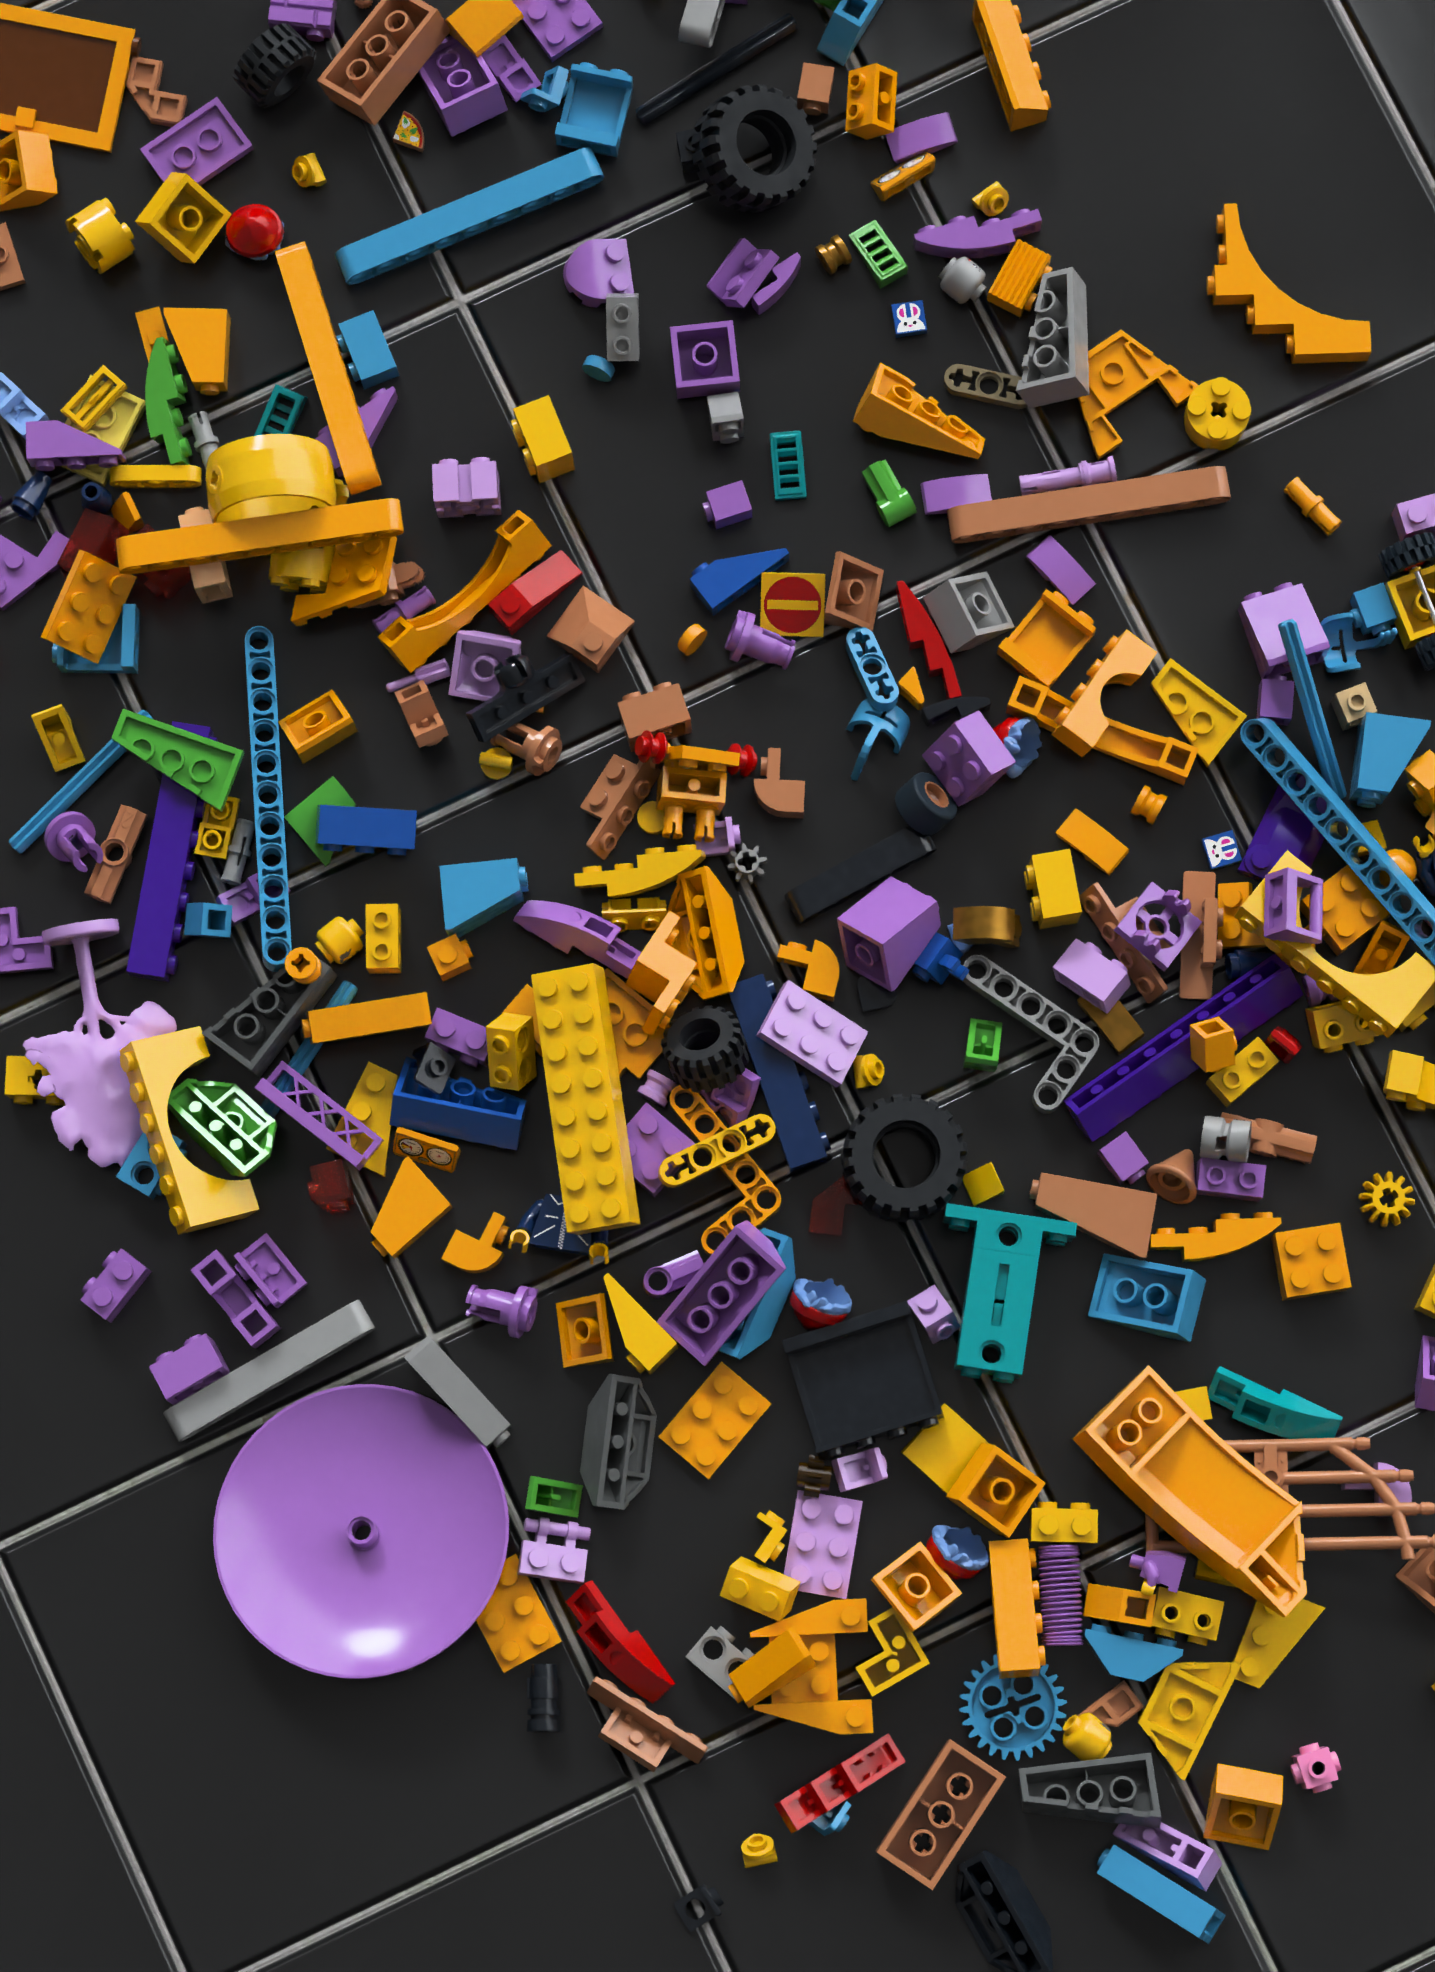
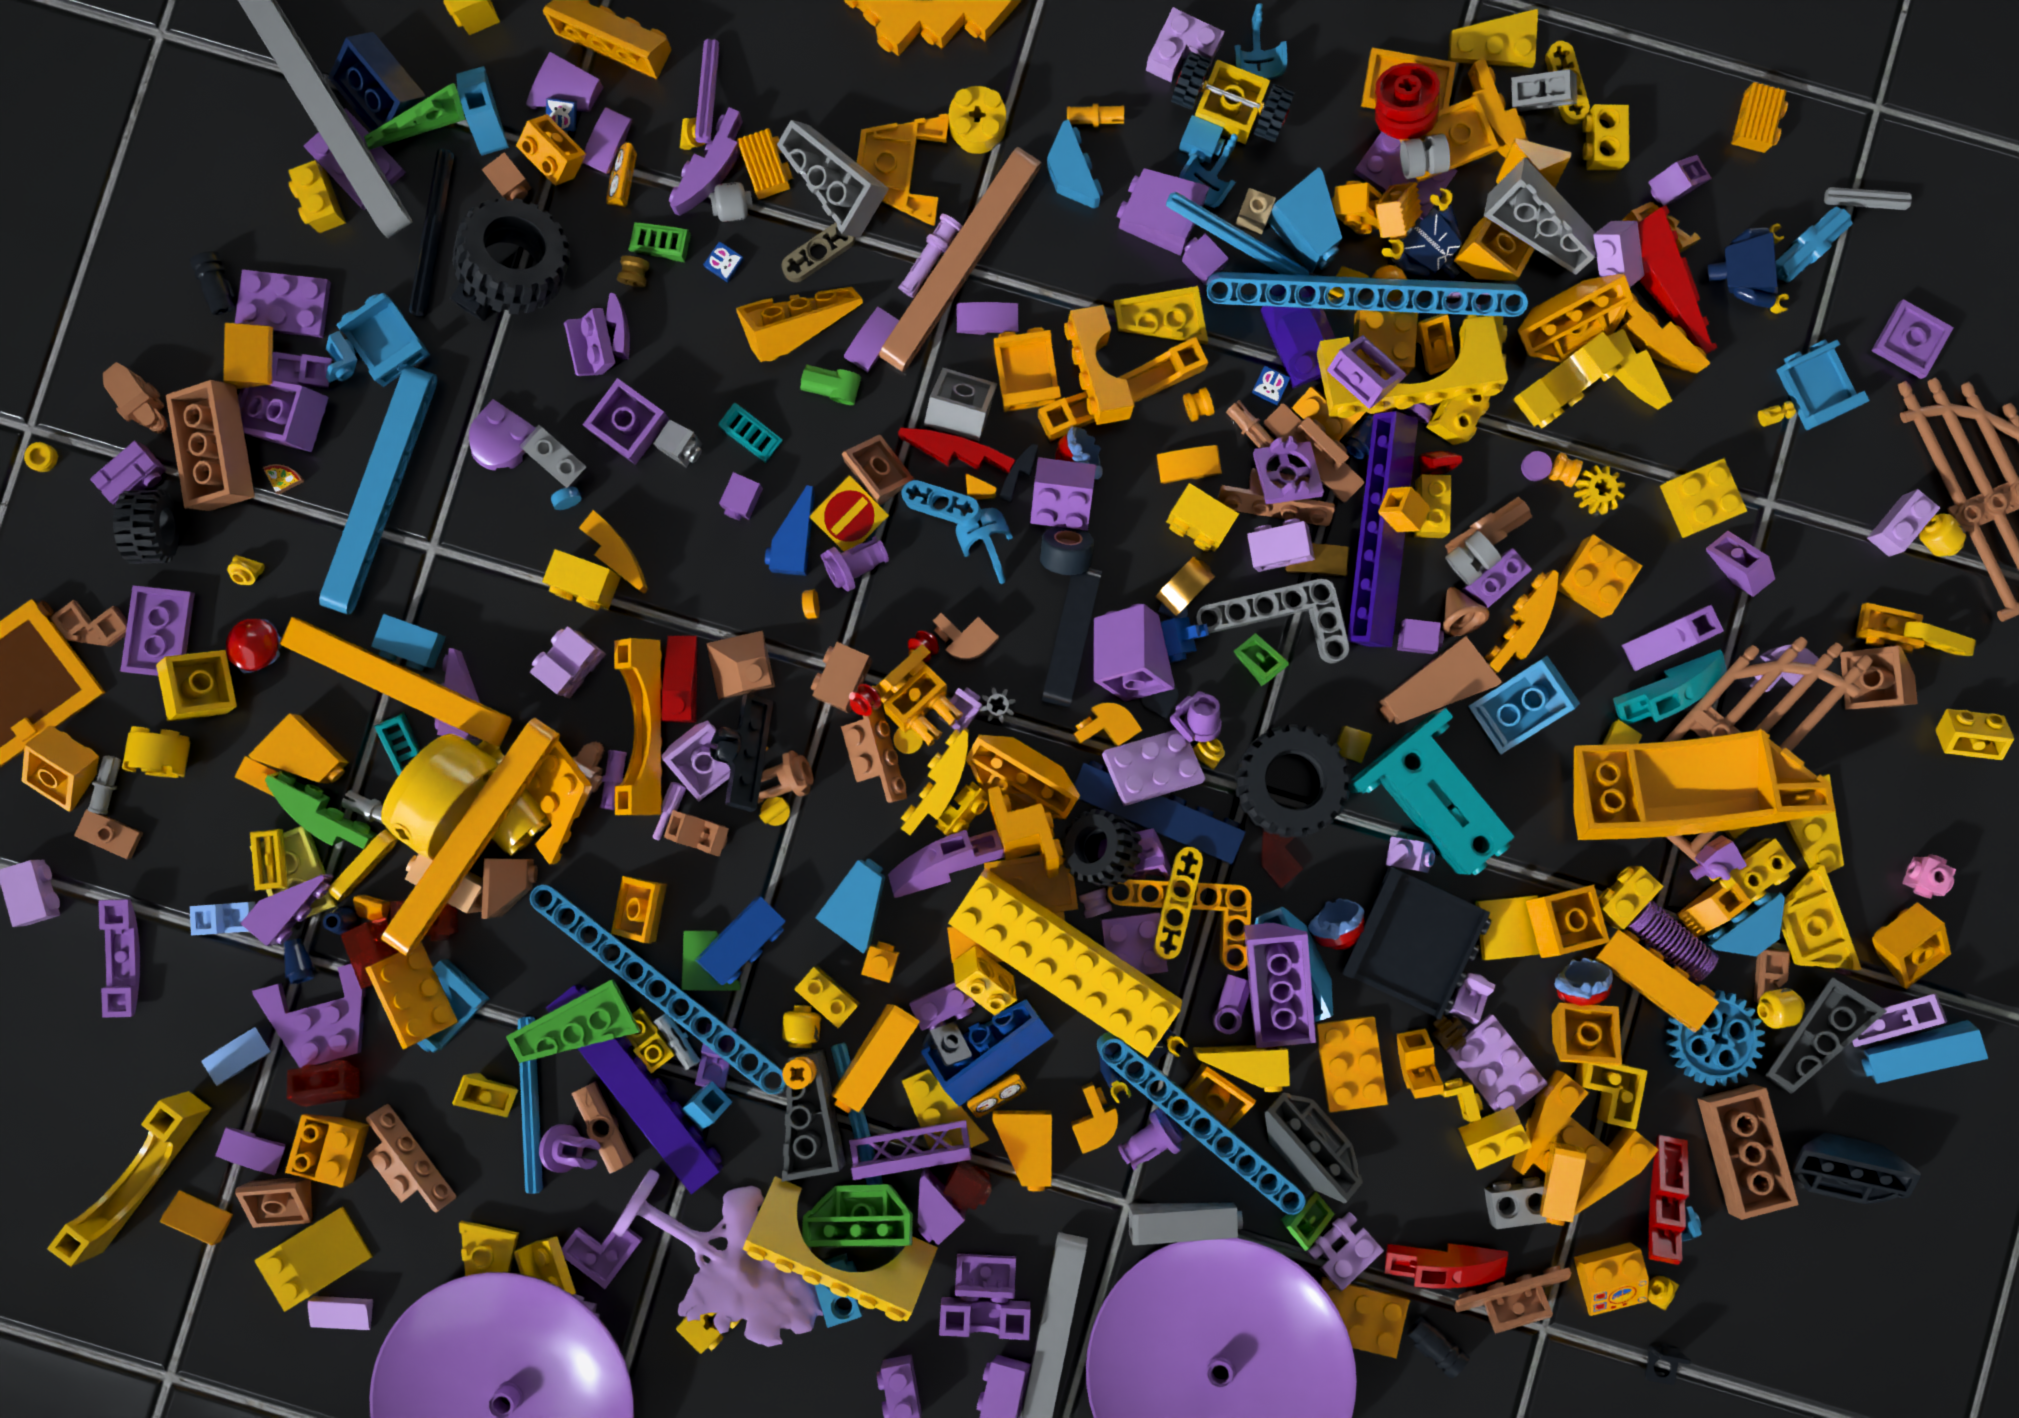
camera: 55 degrees left, 5 degrees up
(37, 218) = (104, 785): none -> light grey axle
(243, 601) = (505, 884): none -> nougat slope
(288, 1177) = (936, 1212): none -> medium lavender slope
(547, 1347) = (1208, 1135): none -> dark azure beam
(591, 444) = (614, 550): none -> light orange slope
(730, 1799) = (1612, 1278): none -> light orange slope
(765, 1471) = (1418, 1064): none -> light orange brick
(889, 1039) = (1202, 720): none -> medium lavender piece
(910, 82) = (562, 112): none -> tile
(933, 64) = (564, 81): none -> medium lavender slope
(1036, 179) = (707, 91): none -> medium lavender axle
(1171, 861) = (1249, 425): none -> nougat axle
(1248, 525) = (1071, 168): none -> dark azure slope
(1317, 1370) = (1673, 637): none -> medium lavender slope
(1359, 1130) = (1536, 466): none -> medium lavender tile
(1377, 1156) = (1565, 469): none -> light orange wheel

